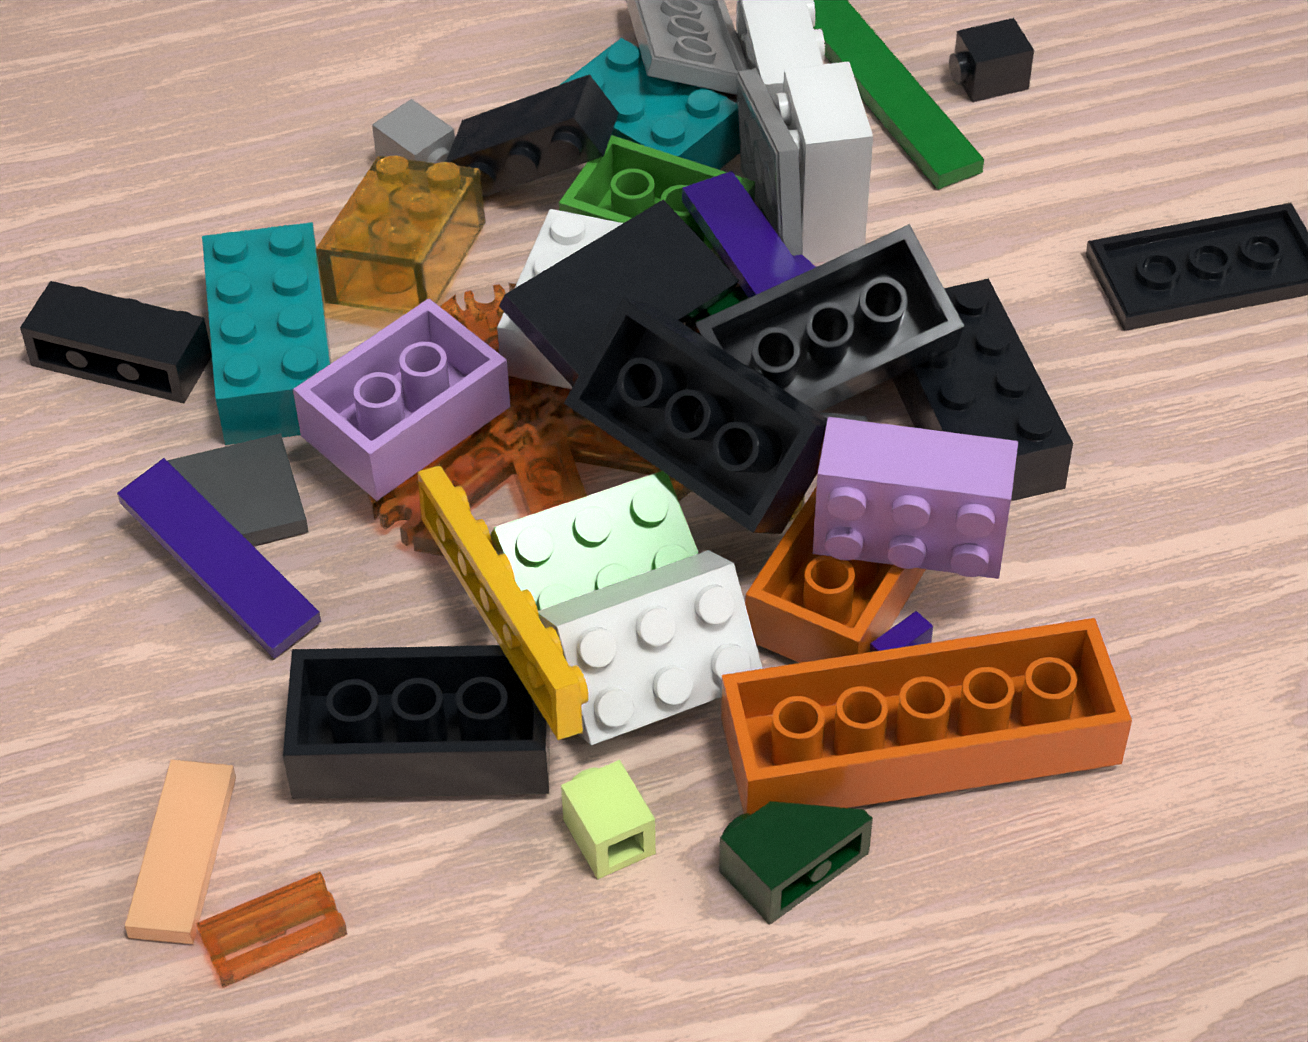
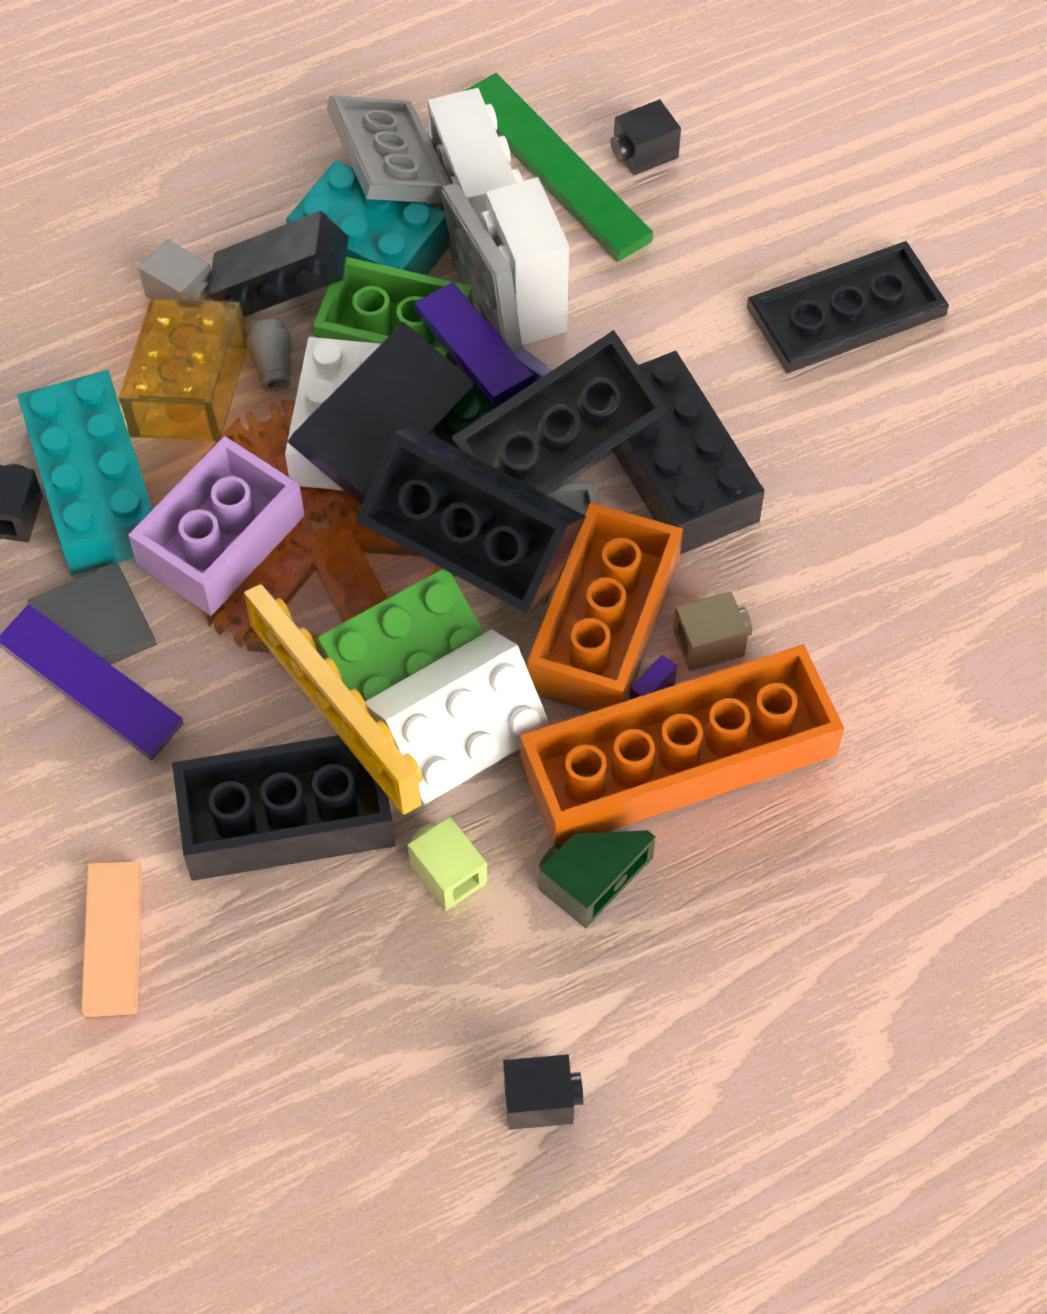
camera: 10 degrees left, 10 degrees up
(267, 920) = (188, 977): clear orange tile -> none
(507, 232) = (270, 352): none -> light grey cone
(913, 497) = (652, 568): lavender brick -> none
(986, 604) = (711, 630): none -> dark tan brick

